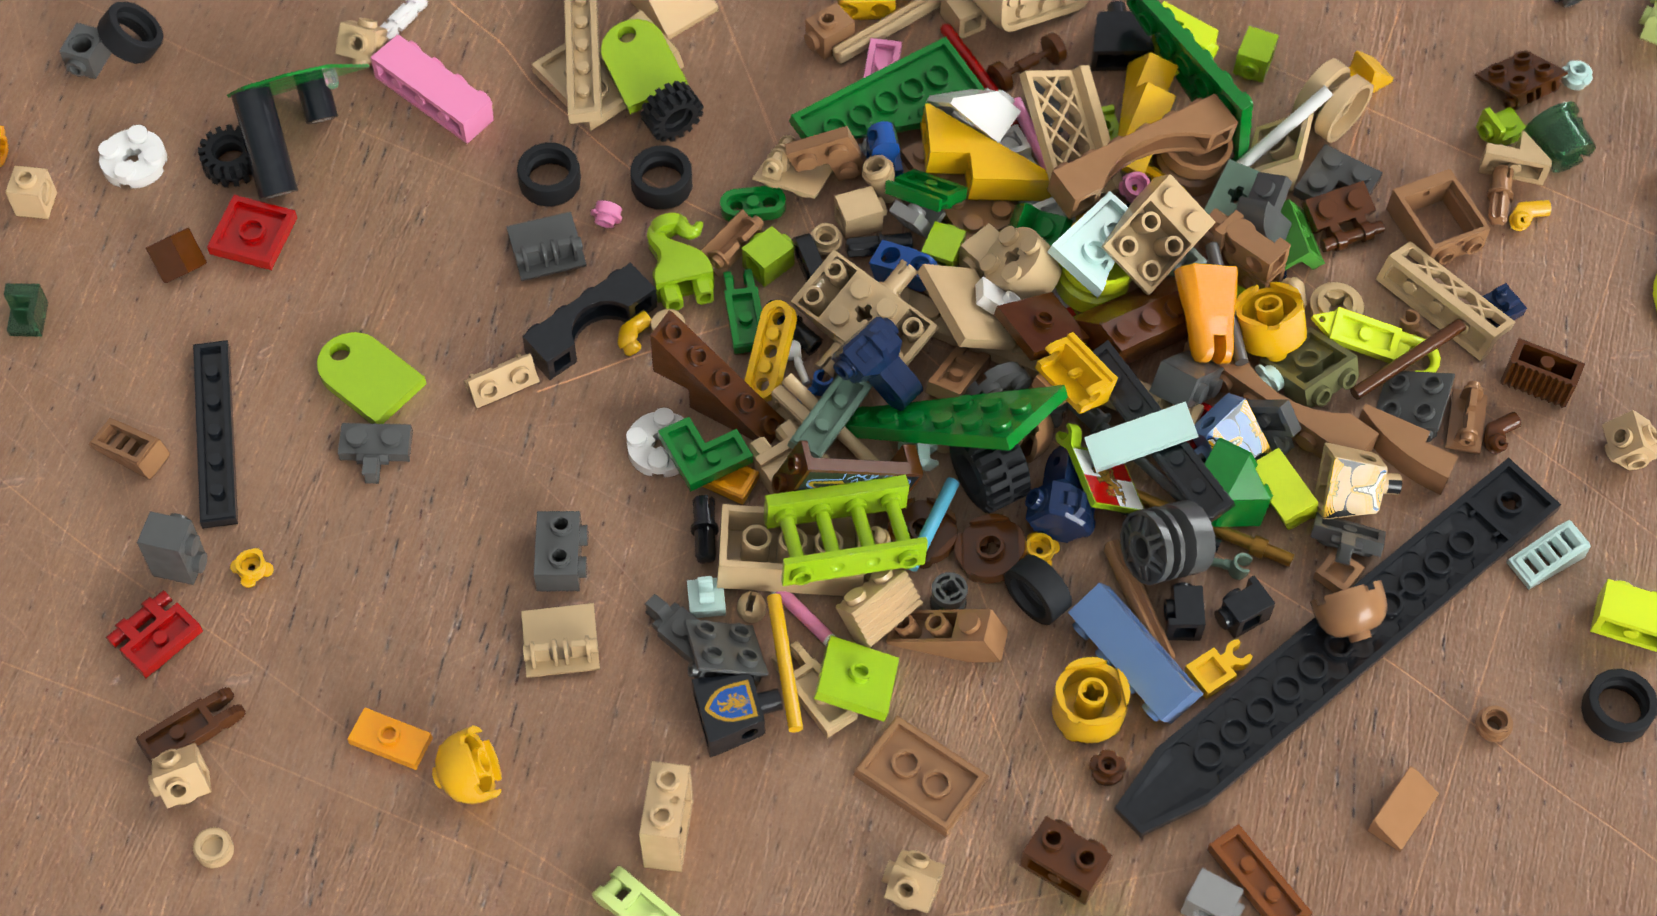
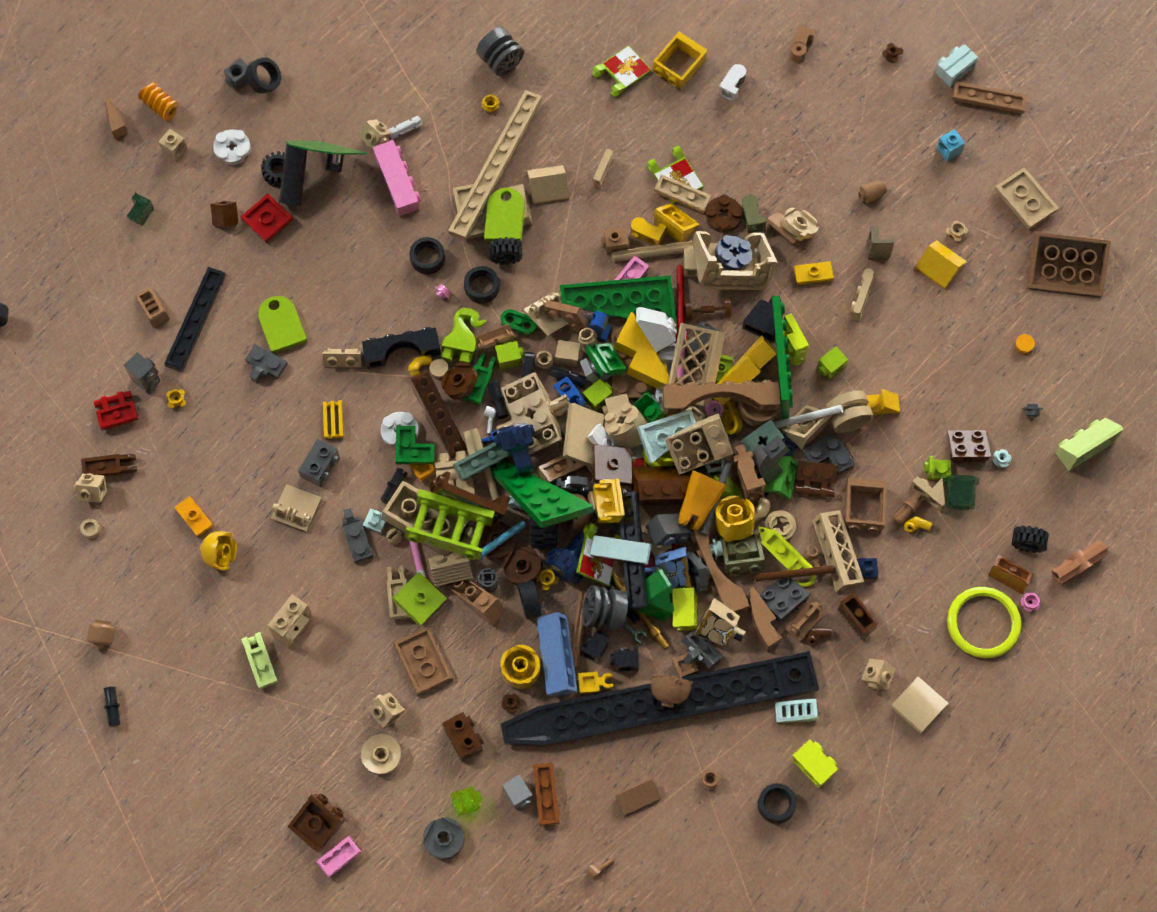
camera: 30 degrees right, 10 degrees up
(528, 457) = (332, 404): none -> yellow tile
(546, 246) = (404, 295): dark grey hinge -> none
(724, 650) = (366, 553): dark grey hinge -> none
(732, 322) = (464, 388): none -> reddish brown plate
(732, 710) = (353, 584): black torso -> none
(767, 337) = (481, 401): yellow plate -> none
(784, 663) = (389, 573): yellow bar -> none

